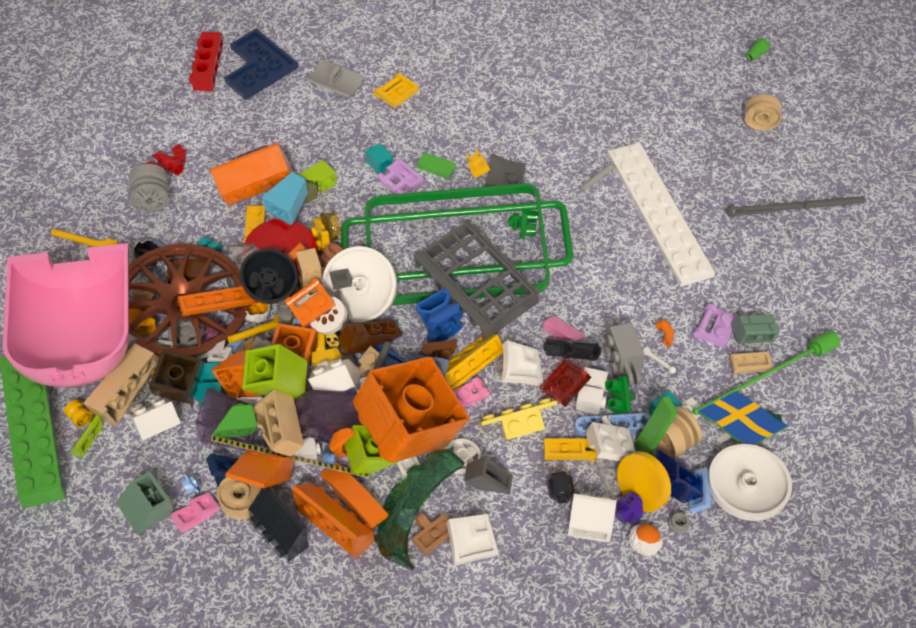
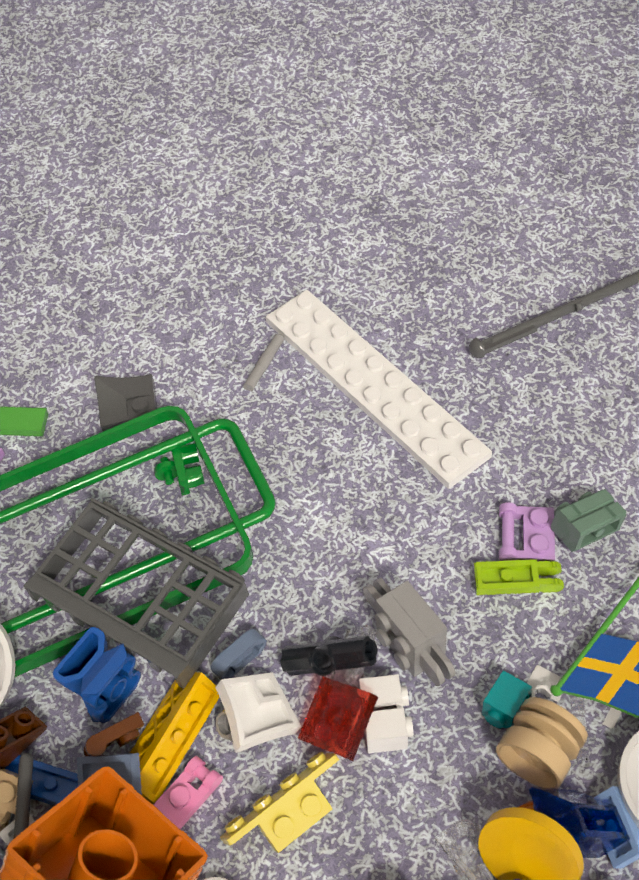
camera: 15 degrees left, 0 degrees up
(477, 164) = (79, 399): yellow plate -> none
(522, 333) = (238, 654): none -> sand blue beam
(561, 329) = (300, 624): bright pink slope -> none
(568, 449) = (388, 830): yellow plate -> none
(609, 440) = (448, 796): white plate -> none
(615, 419) = (435, 755): light blue beam -> none
(620, 395) = (432, 707): green hips -> none
(647, 351) = (442, 613): white hinge -> none
(656, 426) = (515, 753): bright green tile -> none
(668, 331) = (462, 569): orange arm -> none
(700, 346) = (516, 577): none -> lime hinge
(751, 362) = (602, 576): tan plate -> none
(759, 48) = (419, 107): bright green cone -> none
(763, 112) = (464, 192): tan wheel -> none

